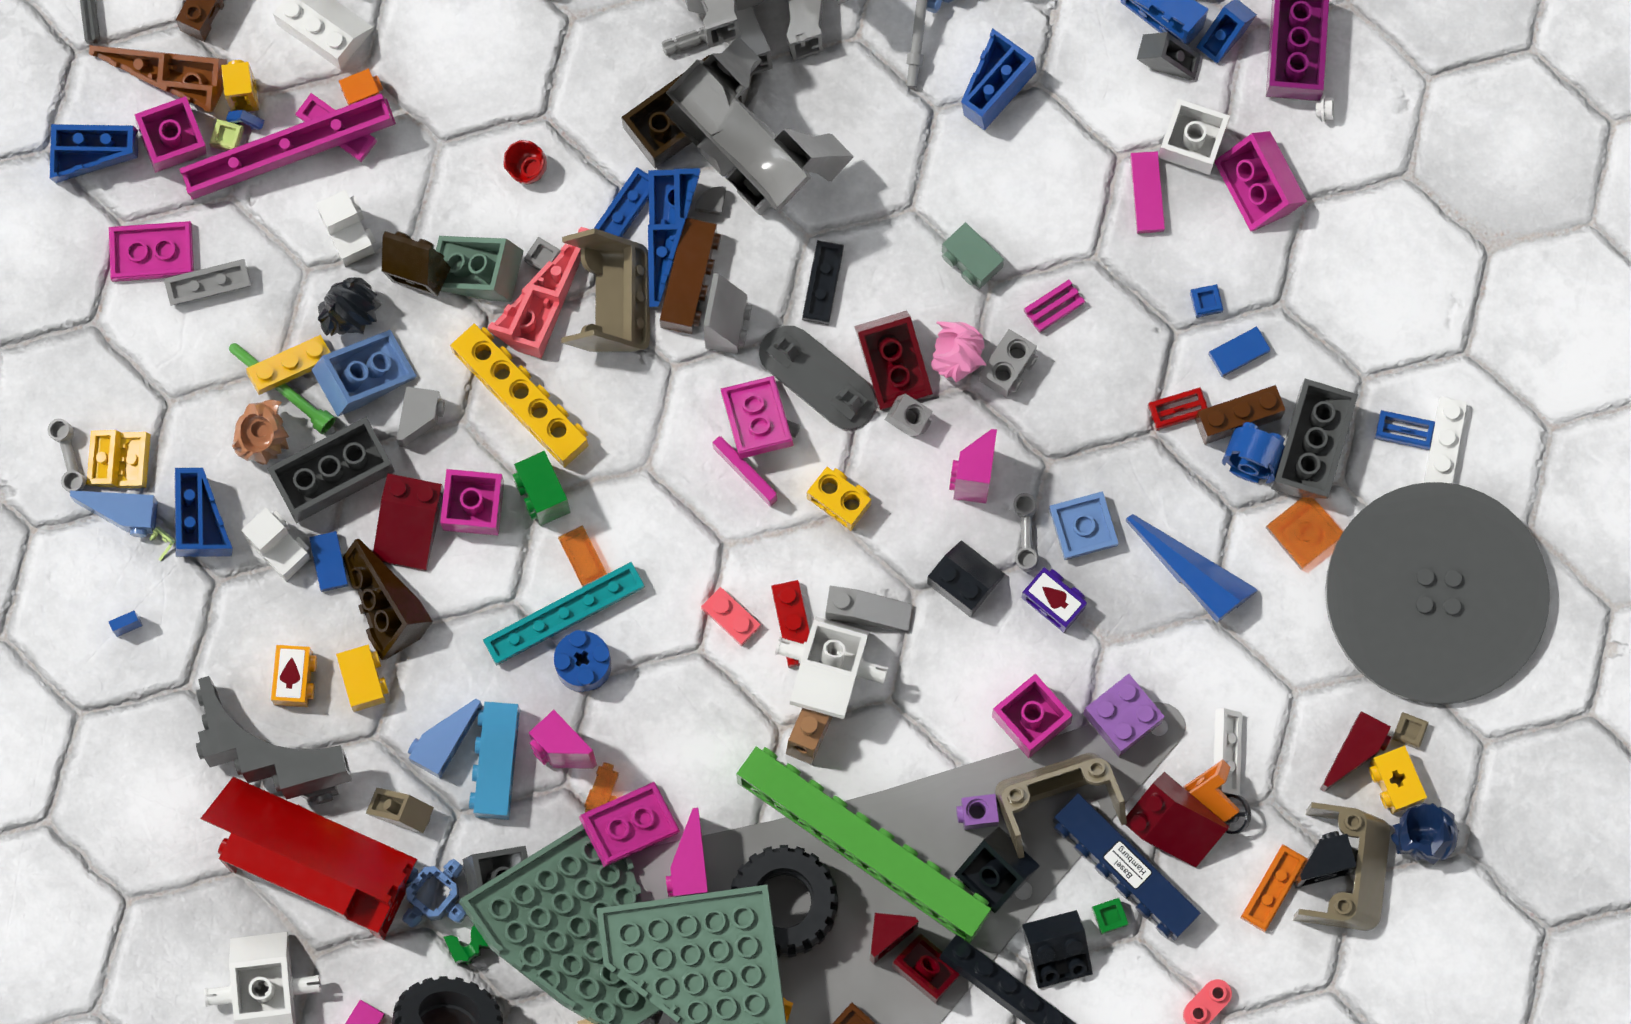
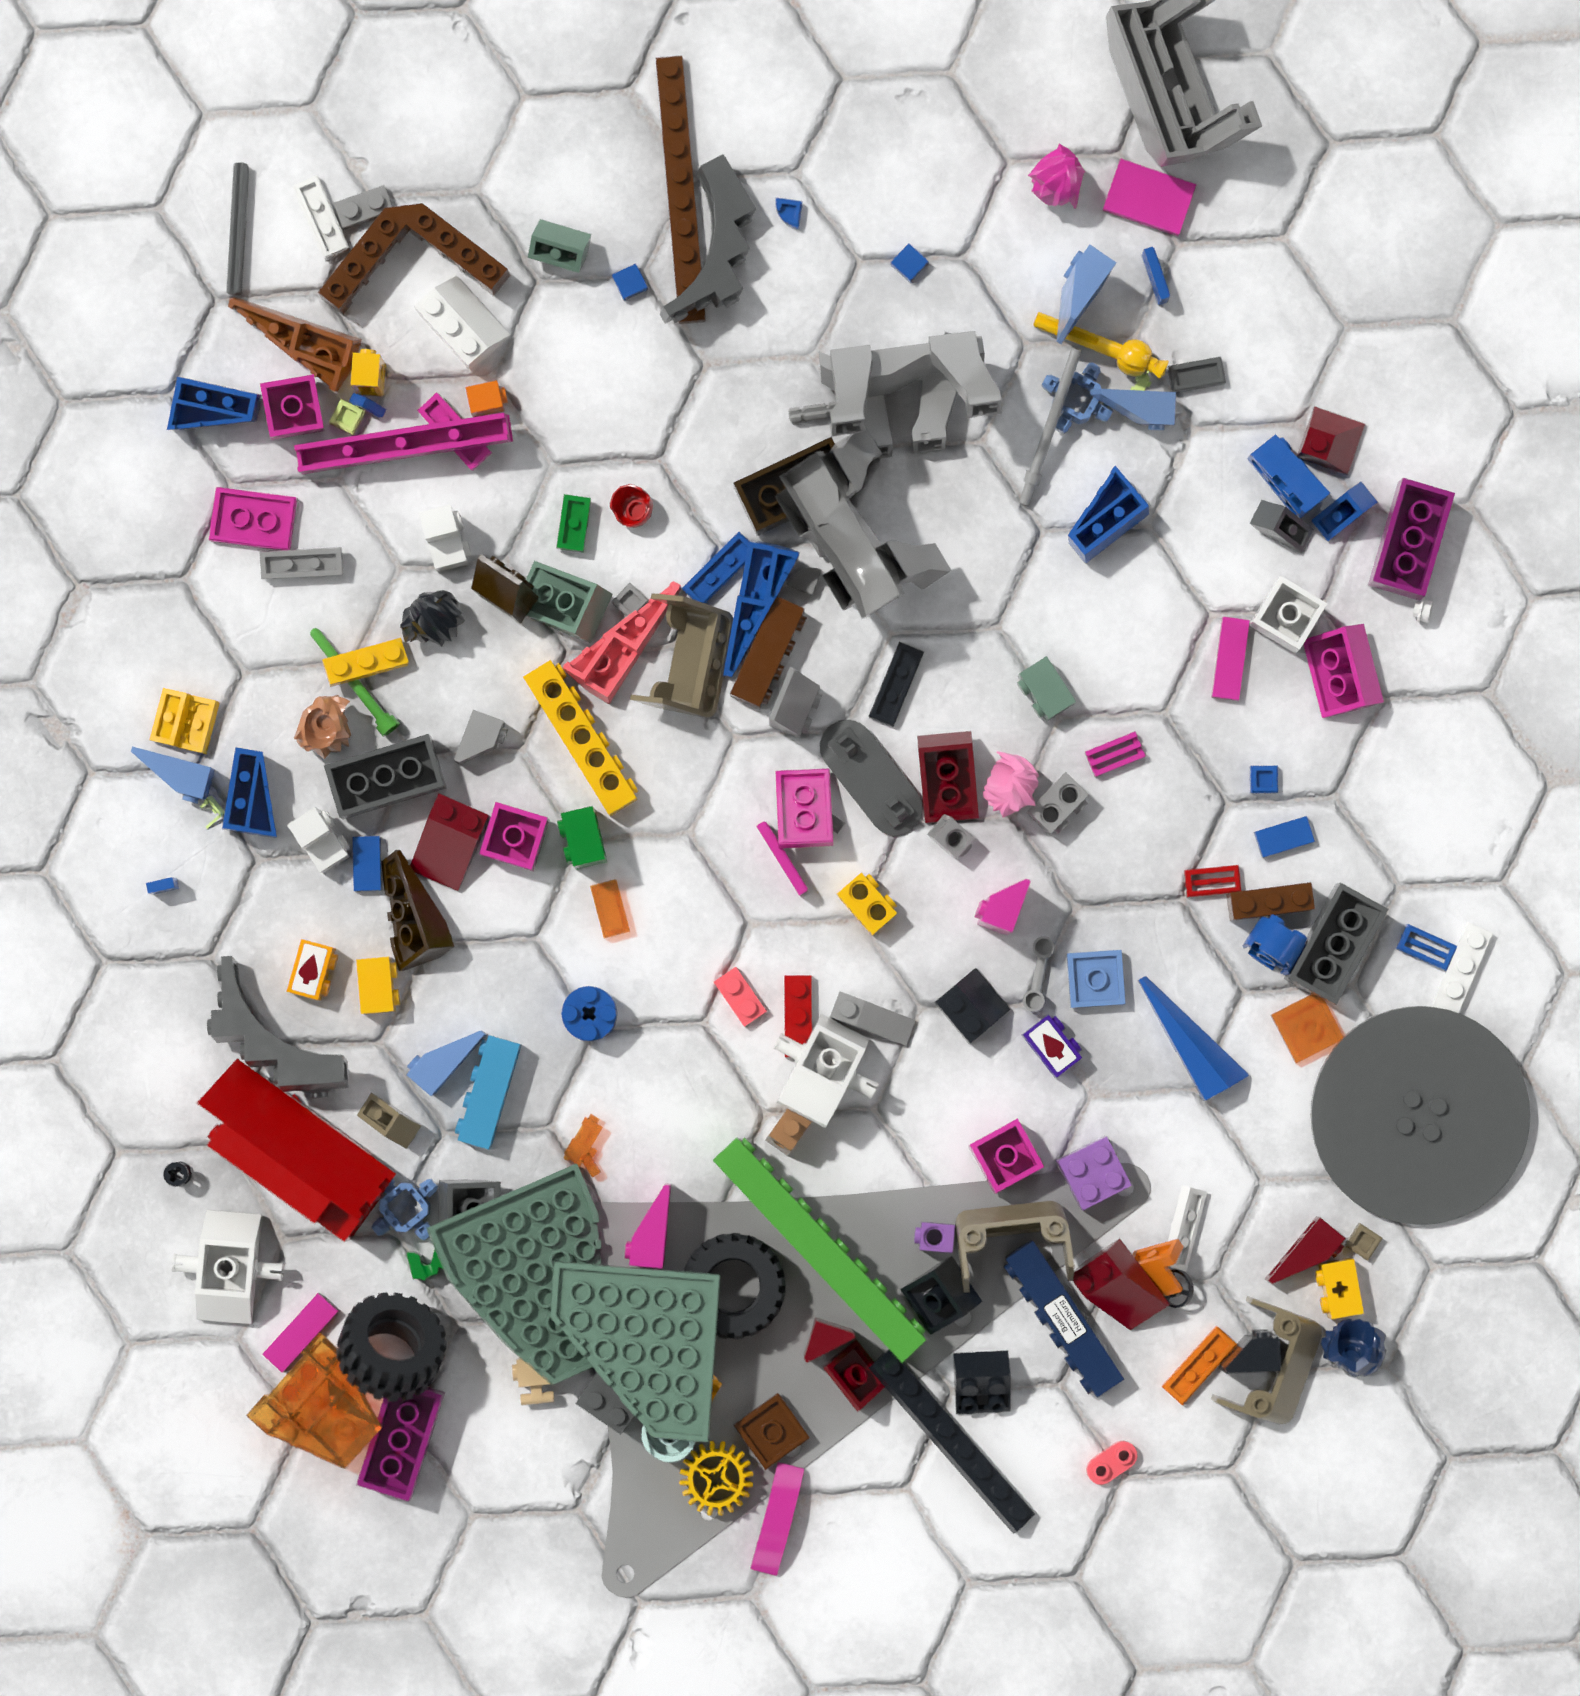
camera: 10 degrees right, 10 degrees up
(63, 433) = (135, 683): light grey bar -> none
(190, 899) = (185, 1171): none -> black bush
(362, 372) = (435, 684): medium blue slope -> none
(471, 191) = (573, 523): none -> green plate
(560, 745) = (551, 1094): dark pink slope -> none
(563, 613) = (581, 961): teal plate -> none
(629, 824) = (602, 1180): dark pink tile -> none
(1110, 916) = (1038, 1361): green plate -> none

